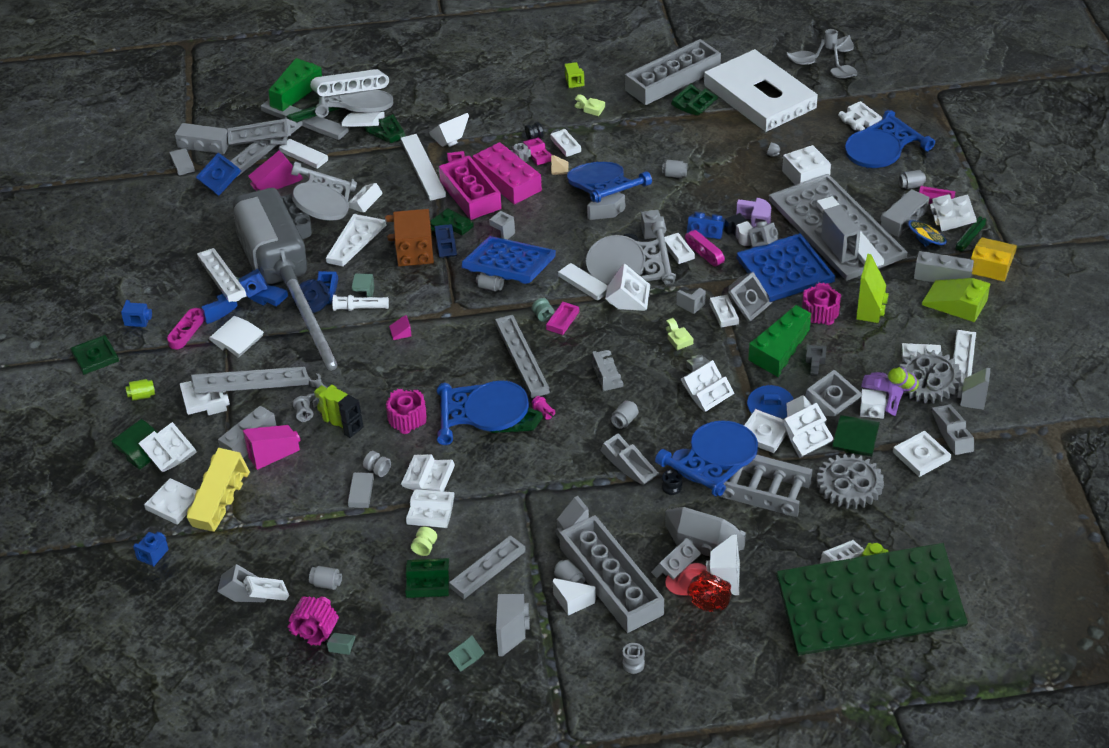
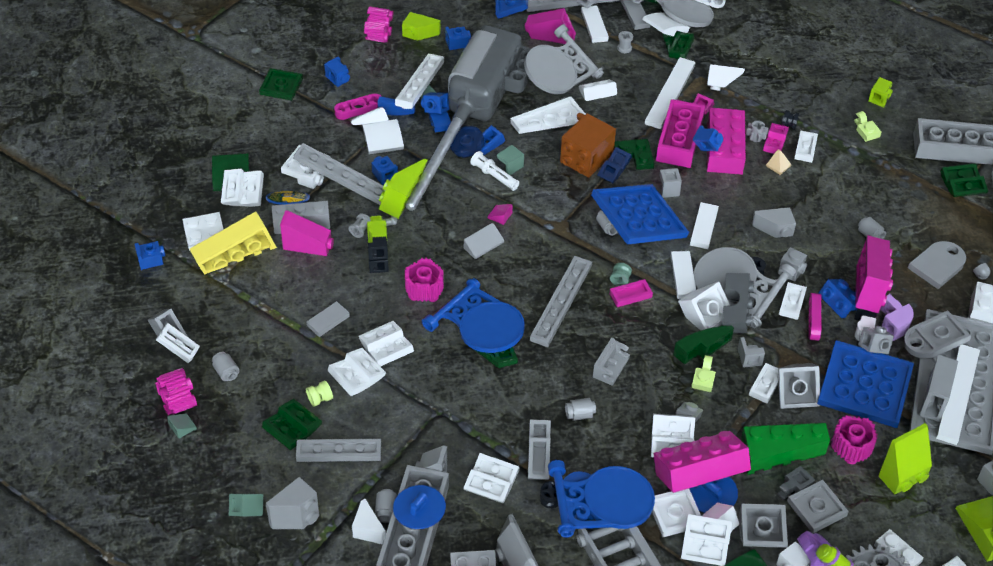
camera: 40 degrees right, 5 degrees up
(130, 256) = (378, 24): none -> dark pink brick
(140, 389) = (276, 131): lime brick -> none
(164, 238) = (420, 27): none -> lime slope
(205, 228) = (457, 37): none -> blue brick
(210, 326) = (375, 115): none -> white slope
(217, 429) = (287, 197): none -> shield
(270, 357) = (381, 166): none -> blue brick
(315, 358) = (400, 188): none -> lime slope
(346, 151) = (625, 42): none -> light grey bush
(376, 463) = (359, 309): light grey wheel -> none
(412, 356) = (483, 241): none -> light grey slope
(502, 175) = (708, 139): none -> blue brick
(539, 403) = (528, 350): dark pink pin -> none
(558, 240) = (704, 225): none -> white tile
(604, 549) = (419, 507): none -> blue shield
(605, 178) = (795, 193): blue piece -> none
(618, 502) = (491, 478): none -> white slope
(642, 260) = (738, 288): none -> dark grey arch
(653, 315) = (702, 343): none -> dark green slope
(717, 191) = (873, 274): none -> dark pink brick
(740, 164) = (937, 264): none -> light grey tile
(747, 385) = (702, 461): none -> dark pink brick
(796, 204) = (935, 336): none -> light grey tile
(846, 361) = (817, 506): none -> light grey plate

